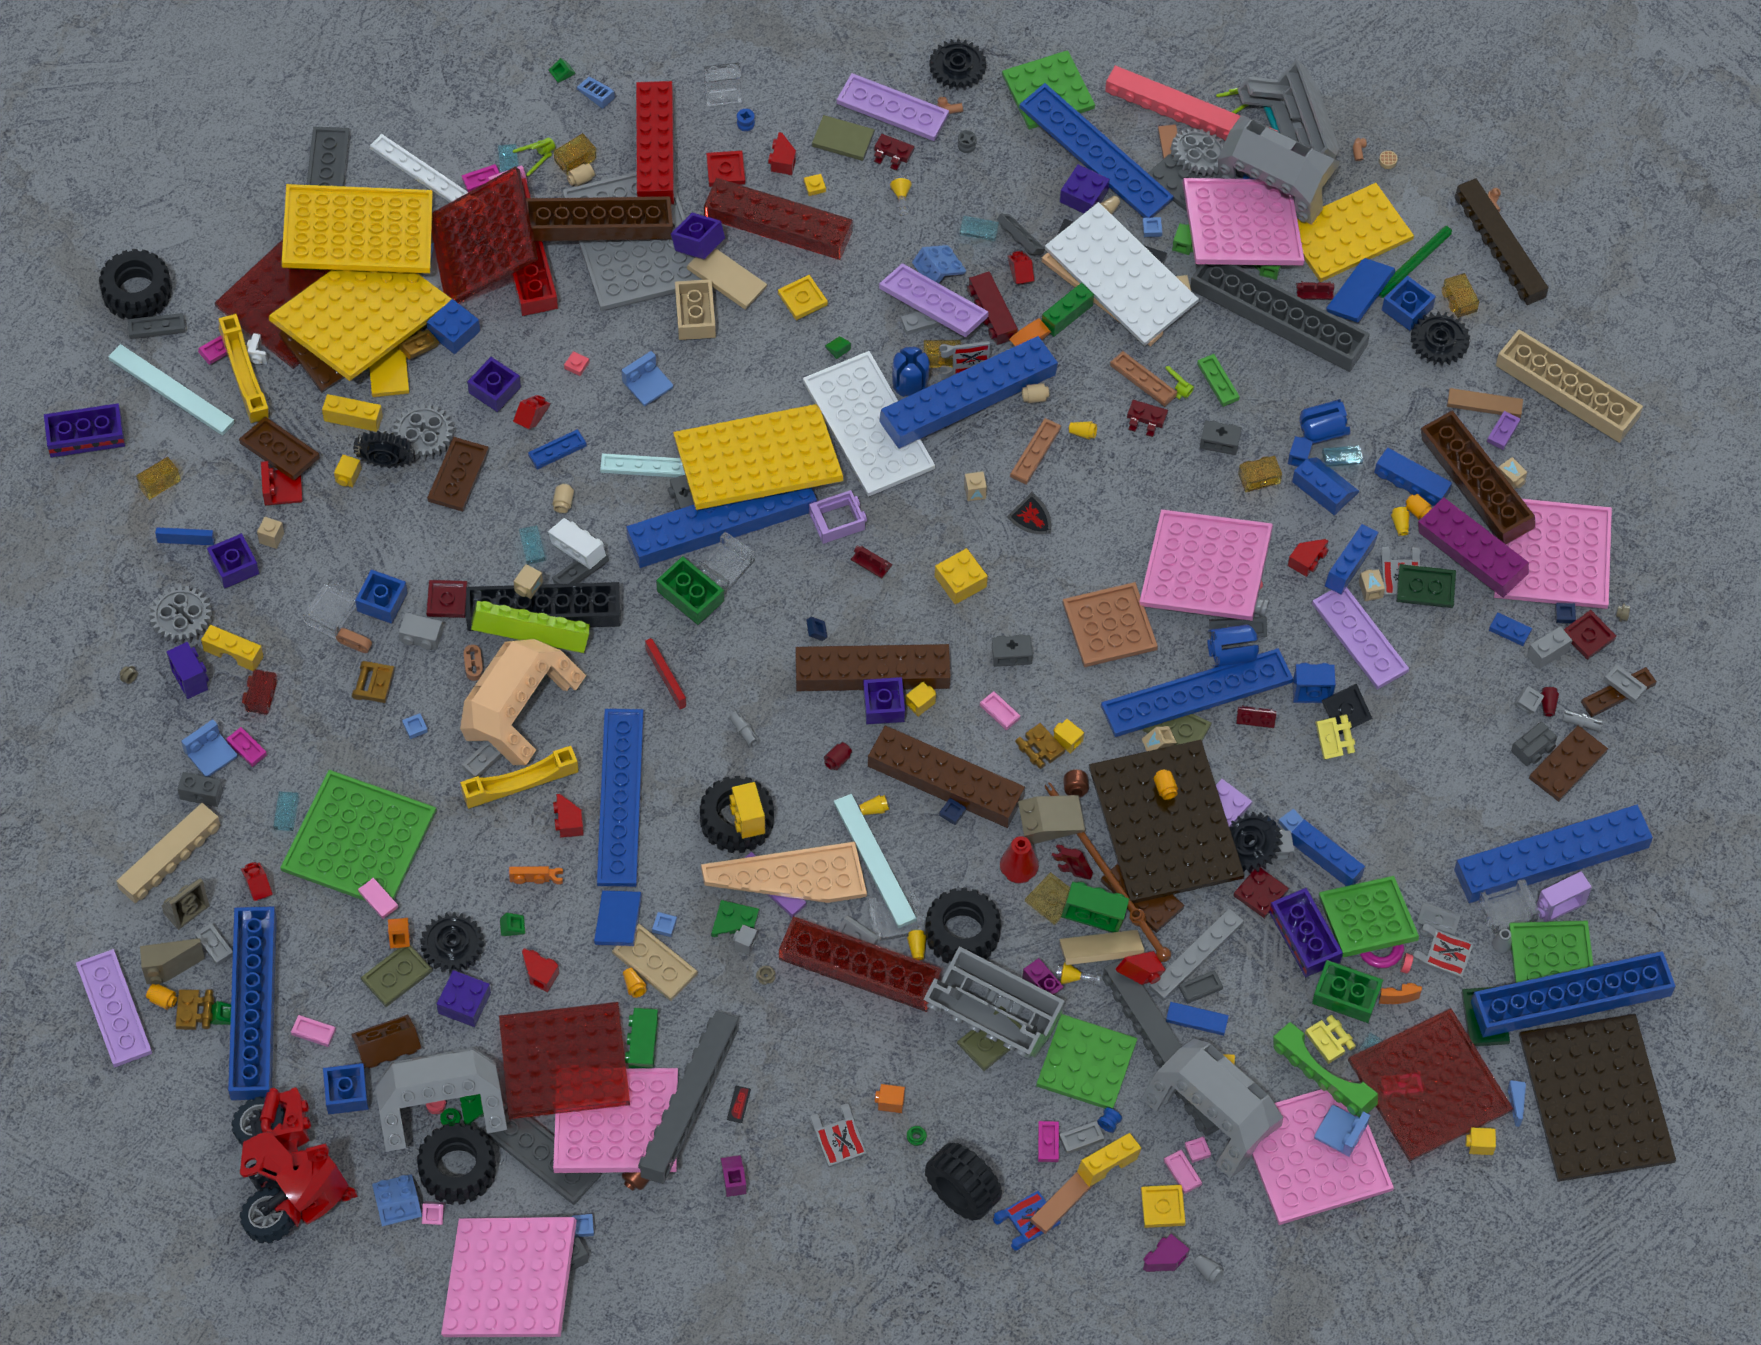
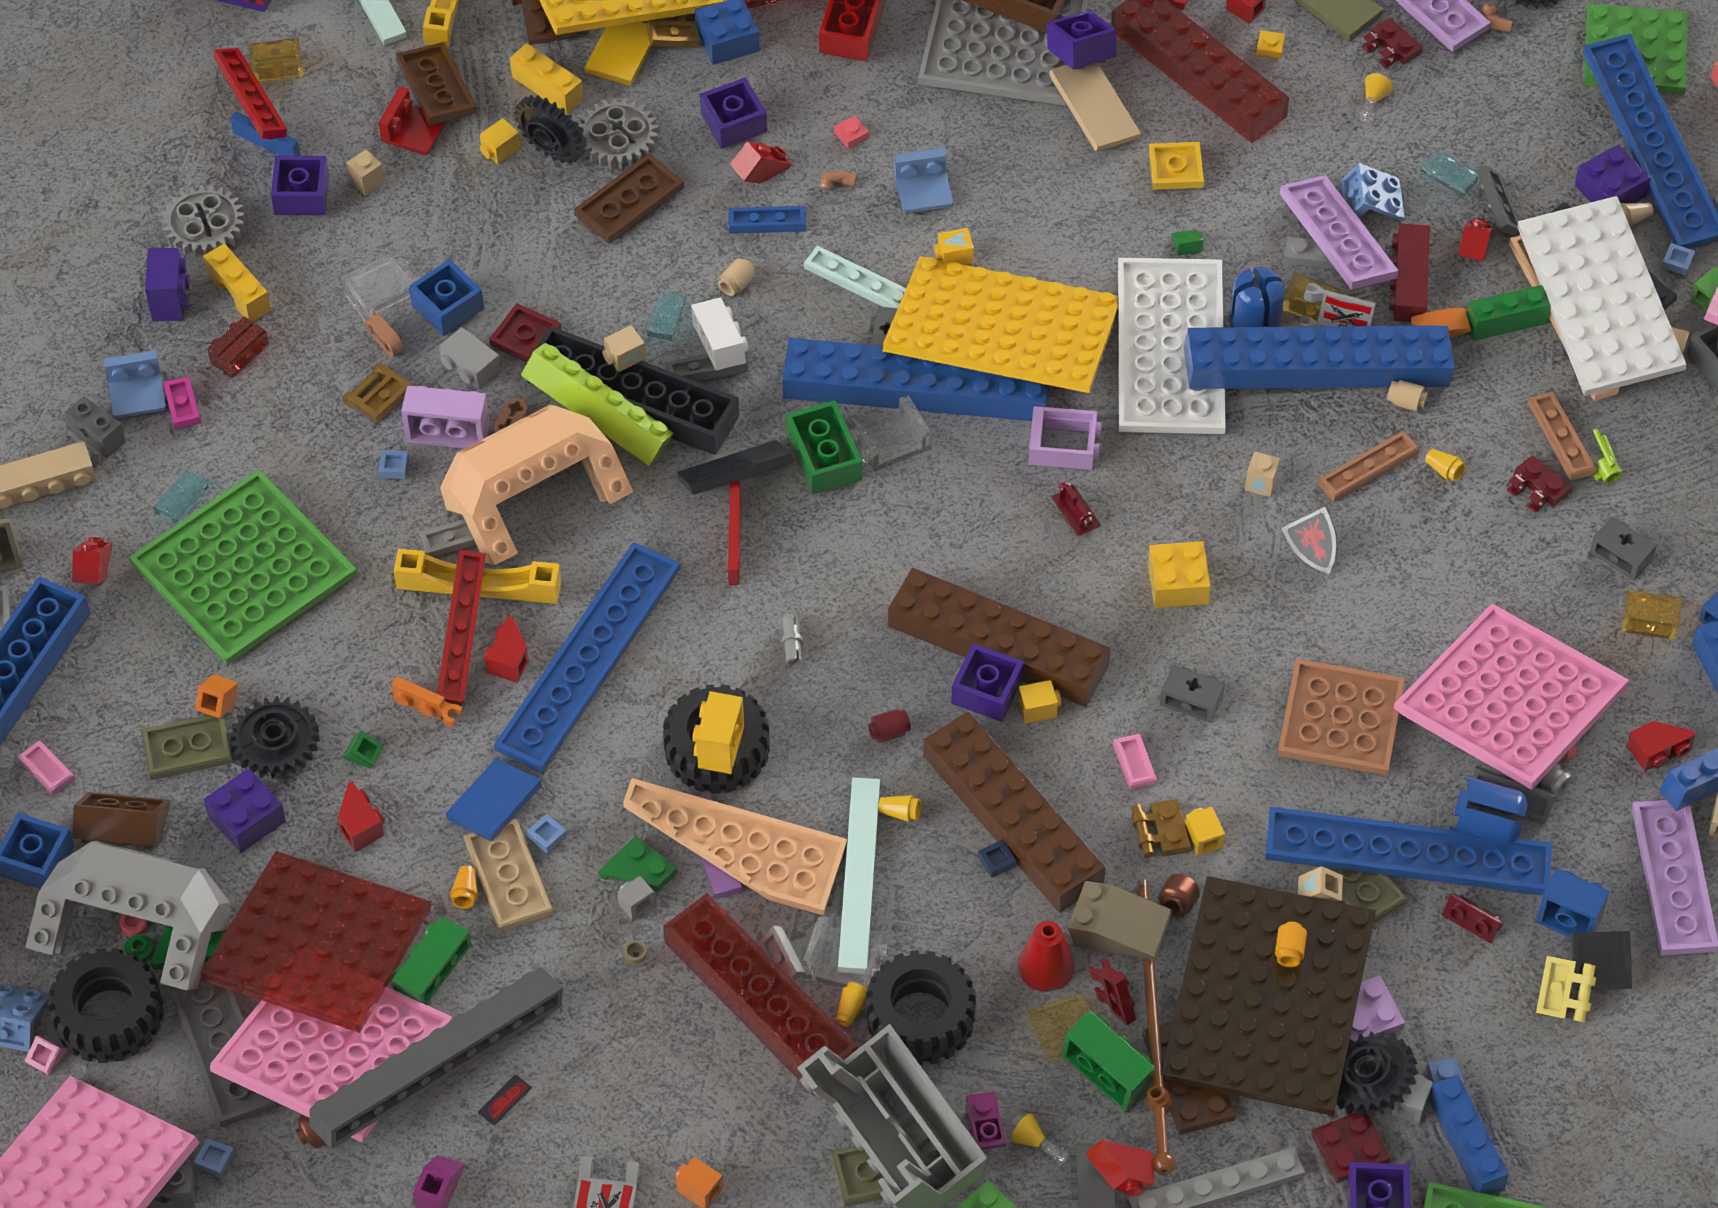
camera: 30 degrees right, 5 degrees down
(128, 674) = (101, 263): dark tan plate -> none
(158, 510) = (250, 93): none -> red plate
(378, 898) = (217, 644): bright pink tile -> none
(433, 679) = (444, 416): none -> lavender brick
(529, 814) = (461, 626): none -> red plate
(587, 398) = (837, 176): none -> nougat arm
(640, 629) = (735, 467): none -> black tile
(693, 416) = (955, 247): none -> yellow brick
(695, 309) = (1031, 125): tan brick -> none
(816, 628) = (956, 560): dark blue plate -> none
(970, 139) = (1497, 62): dark grey wheel -> none
(1101, 947) = (1089, 1116): tan tile -> none
(1218, 380) = (1661, 477): bright green plate -> none

